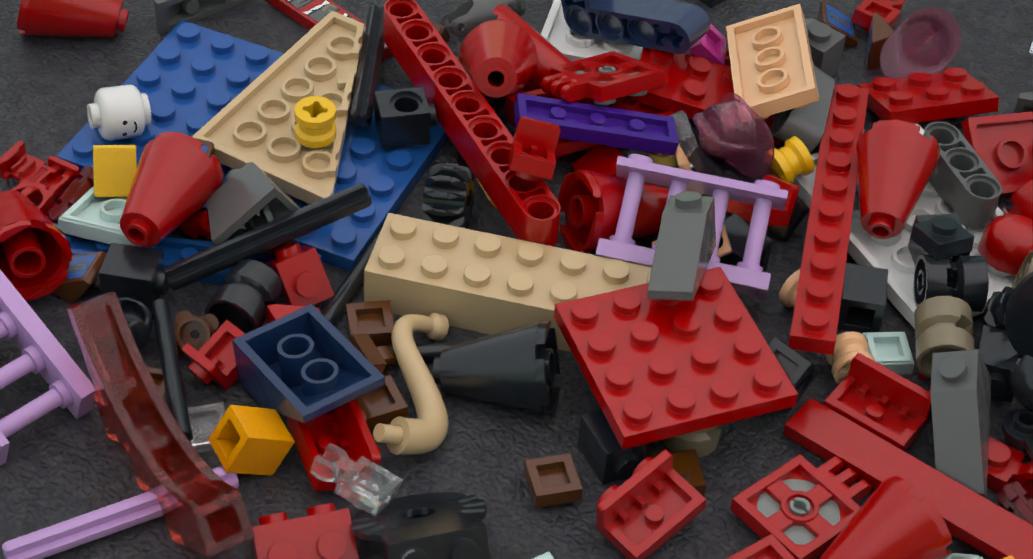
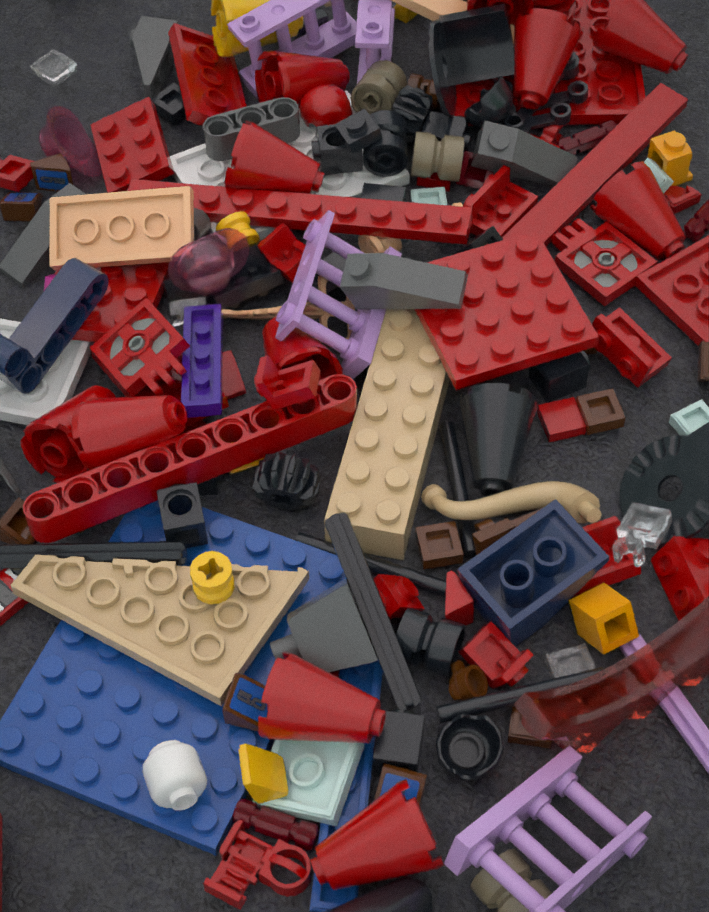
camera: 85 degrees left, 10 degrees up
(544, 441) = (561, 419): none -> red tile

